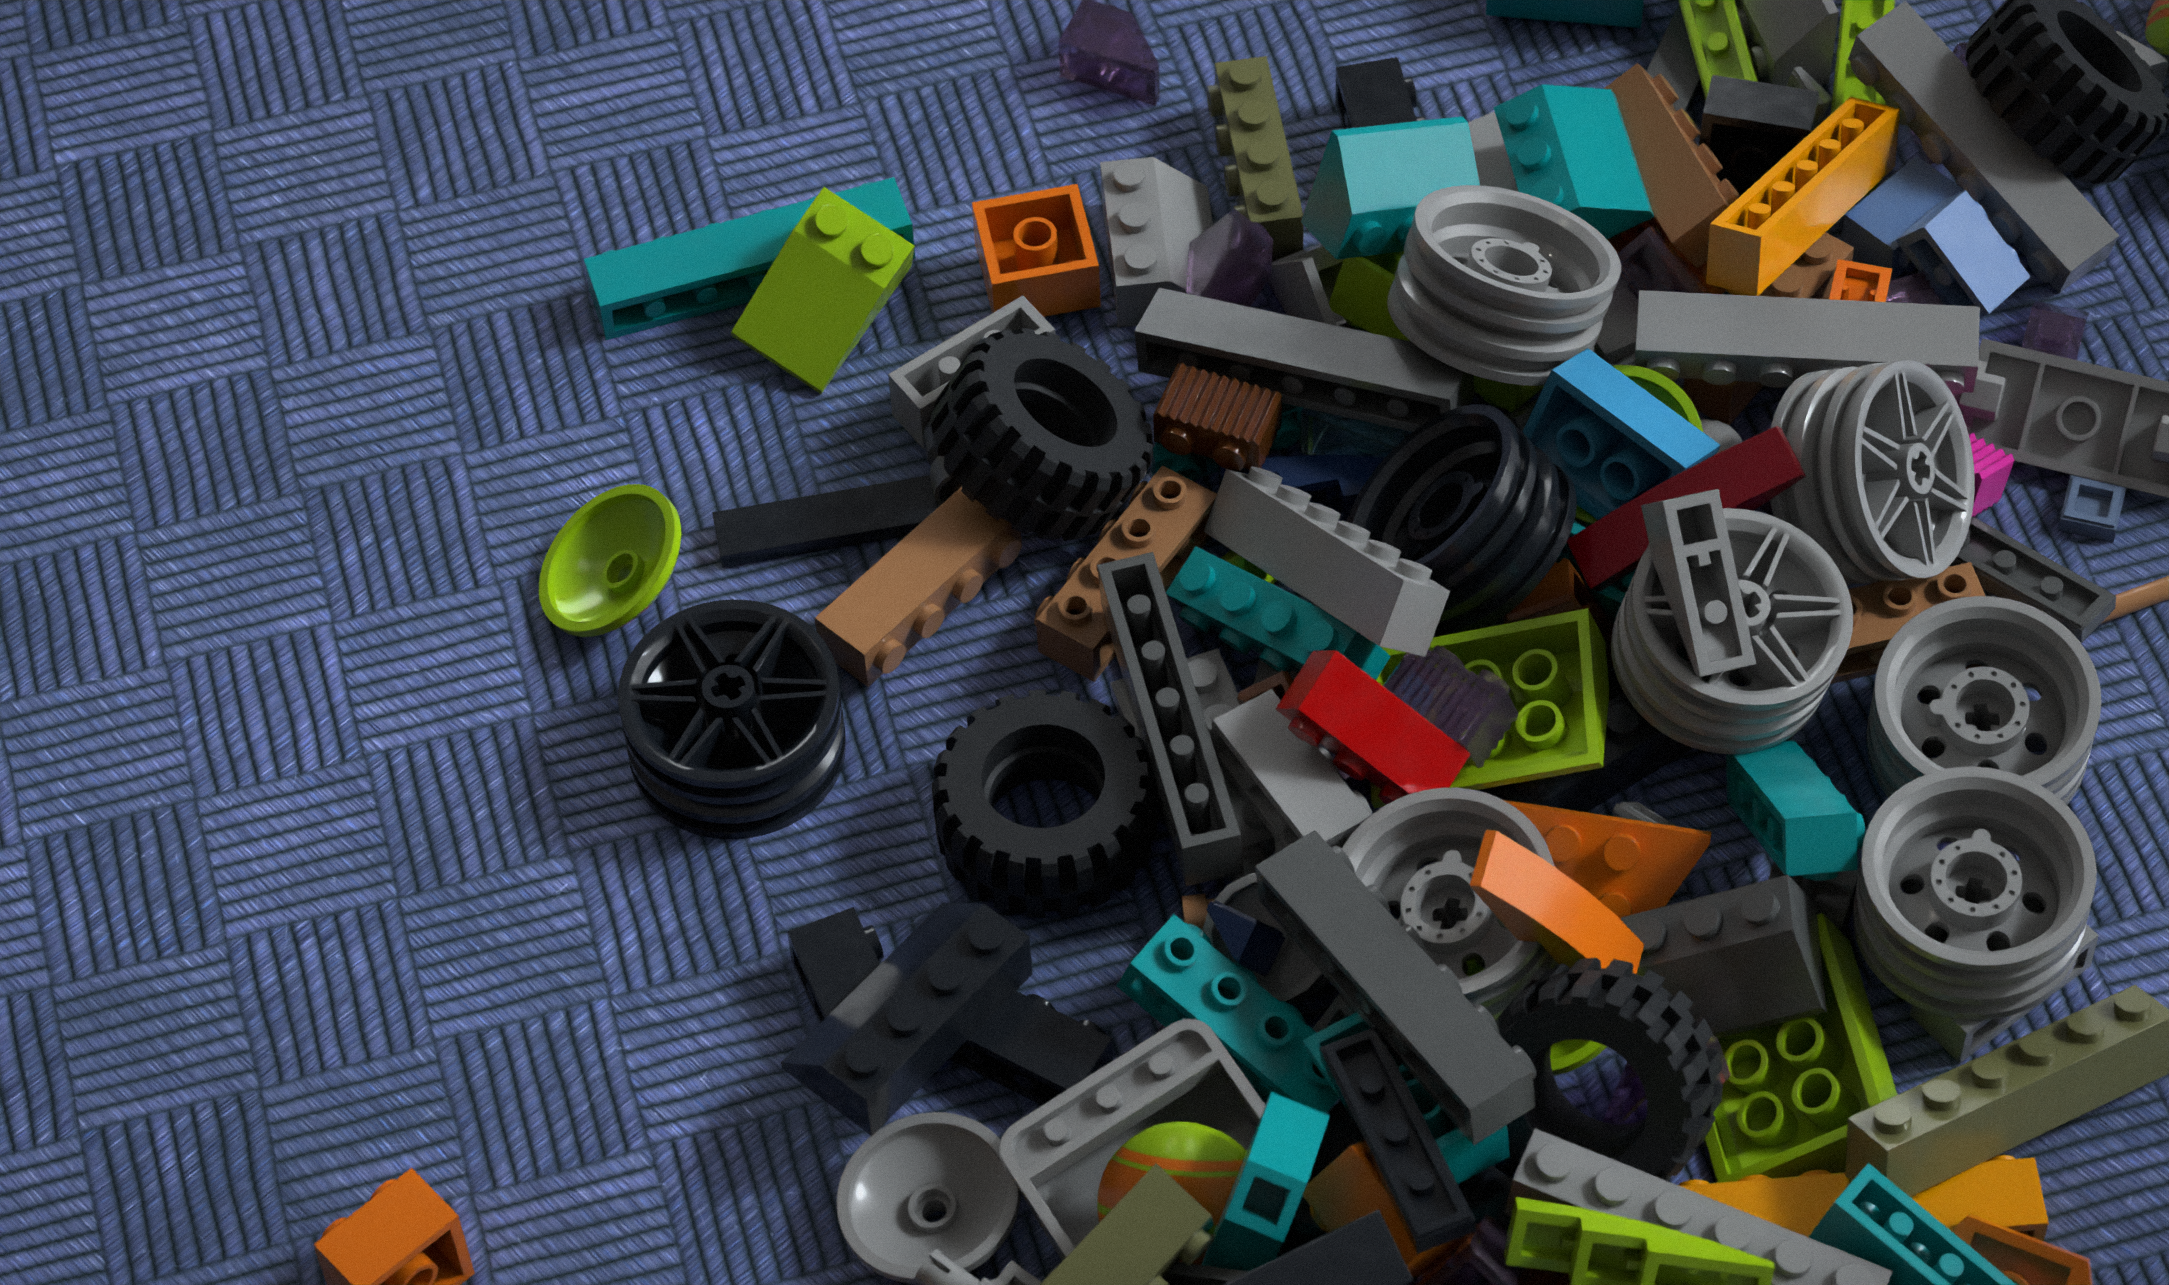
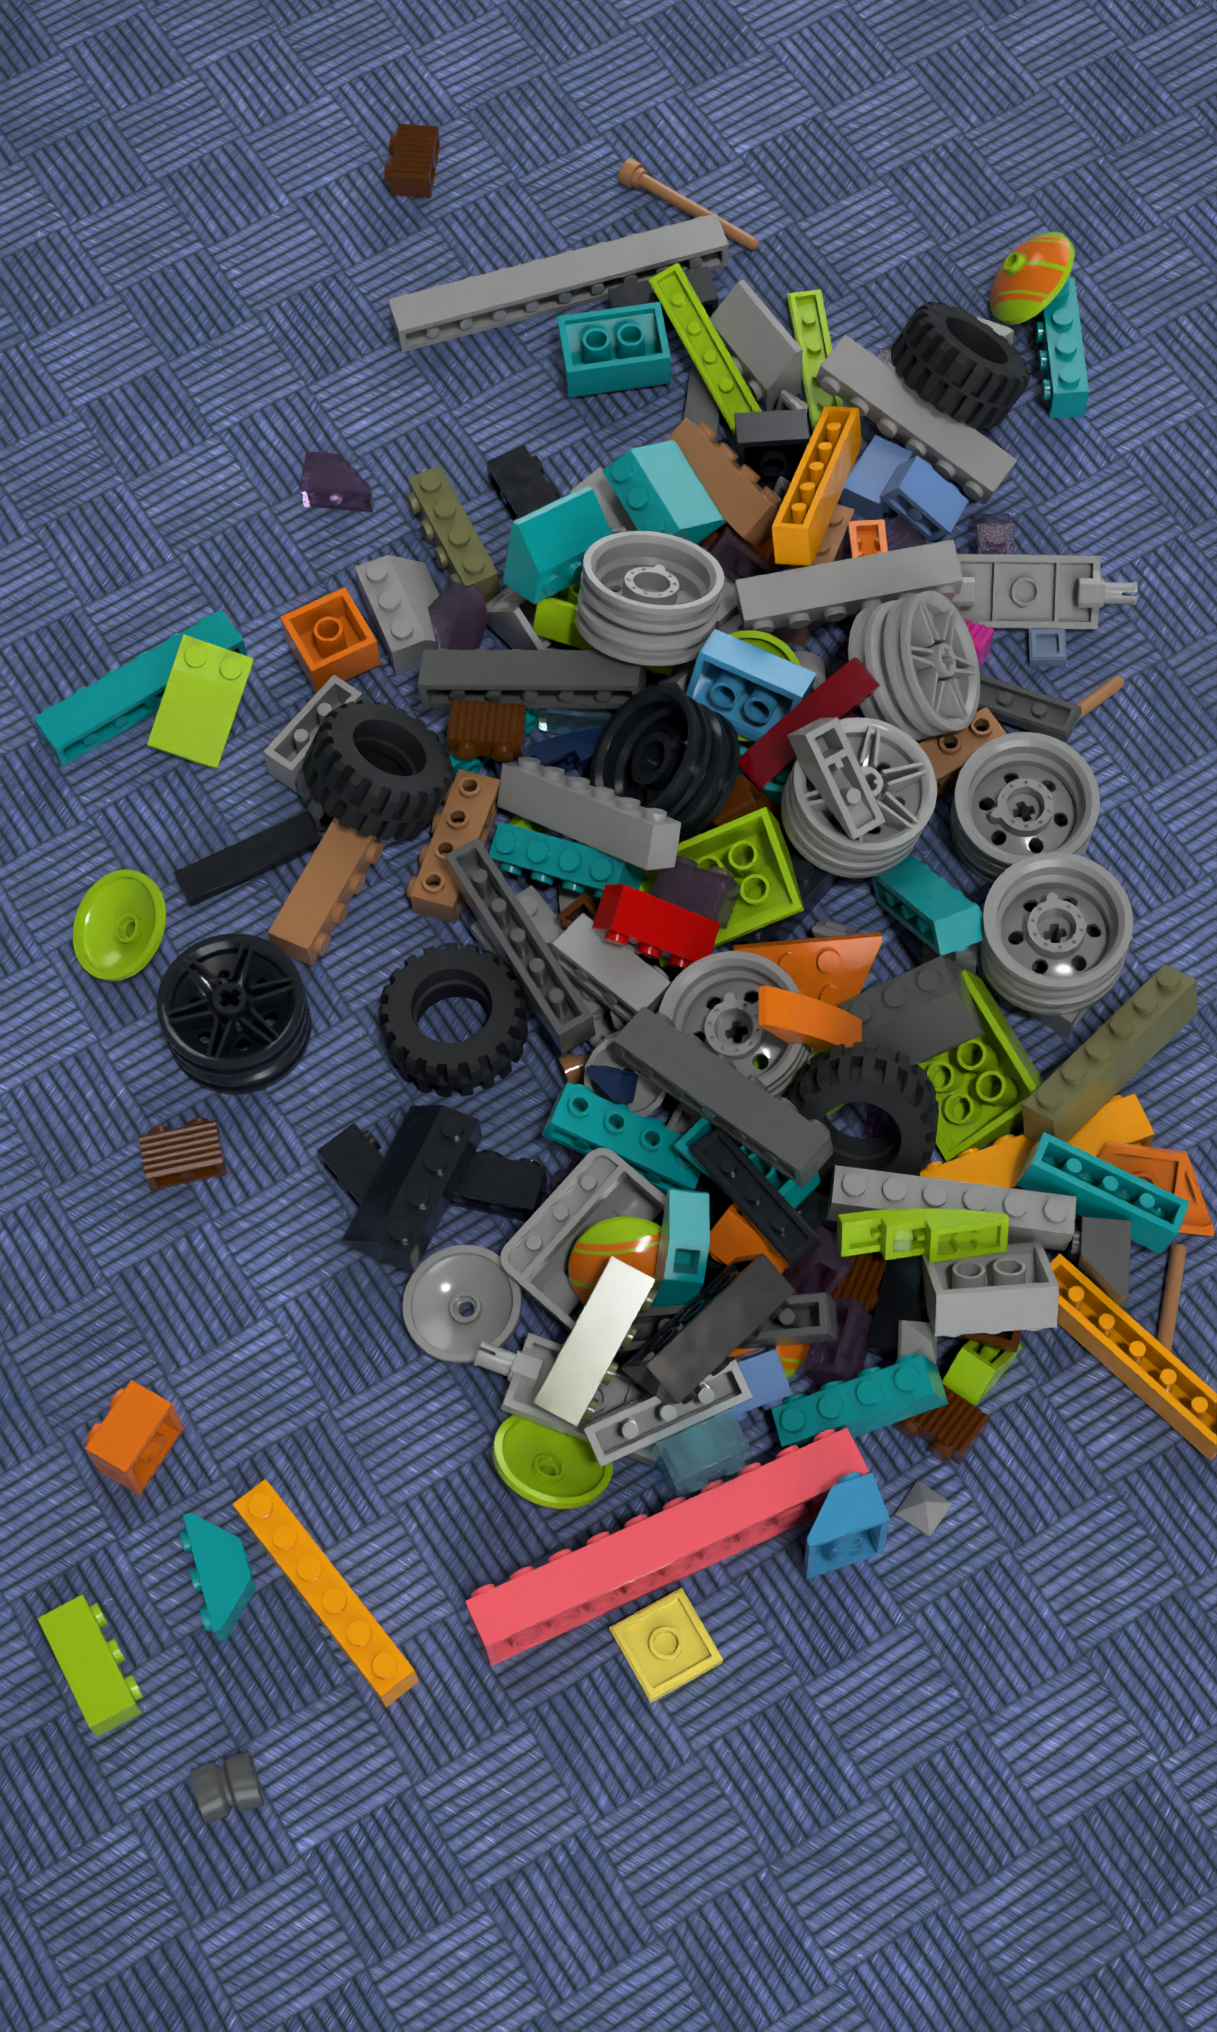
camera: 15 degrees left, 10 degrees up
(596, 893) = (182, 1154): none -> reddish brown brick

